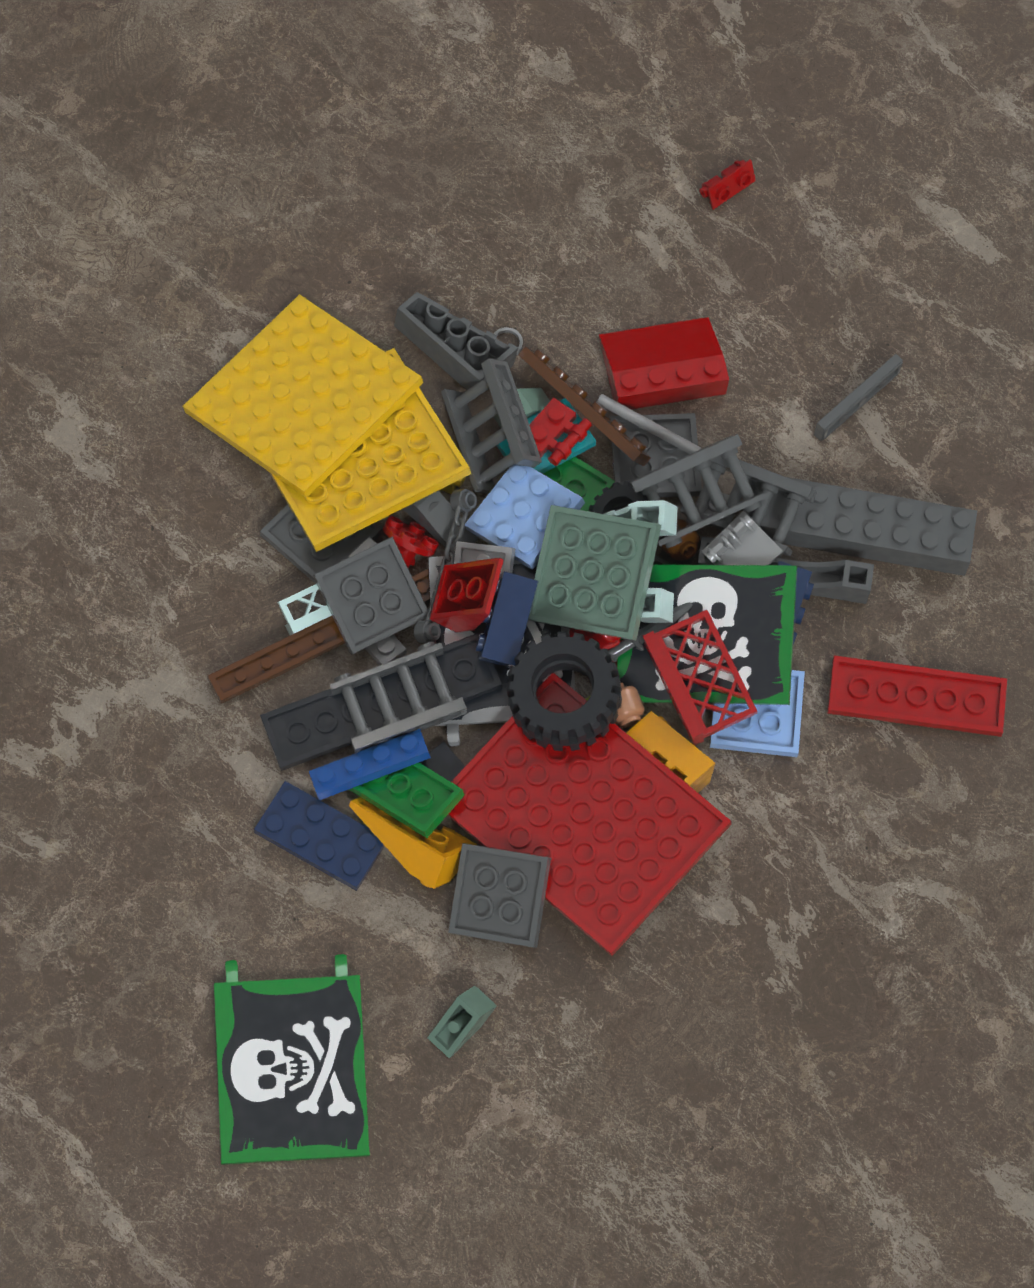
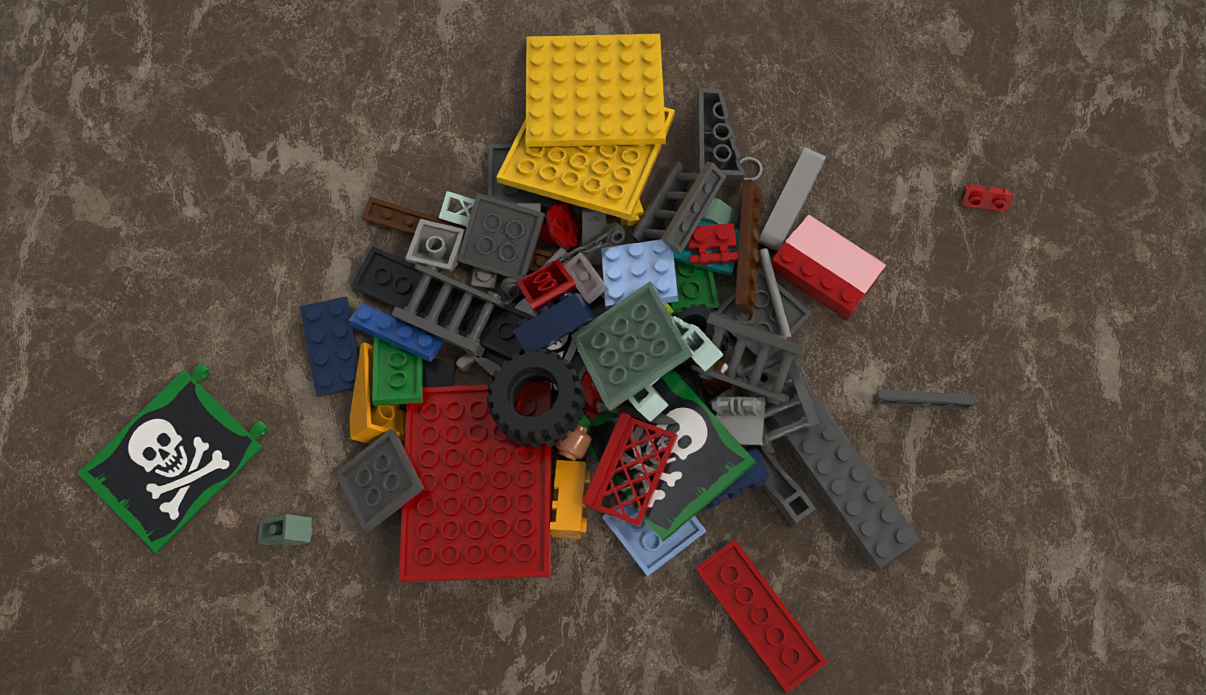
camera: 55 degrees right, 5 degrees up
(320, 657) = (436, 245): none -> light grey slope
(573, 332) = (792, 199): none -> light grey beam

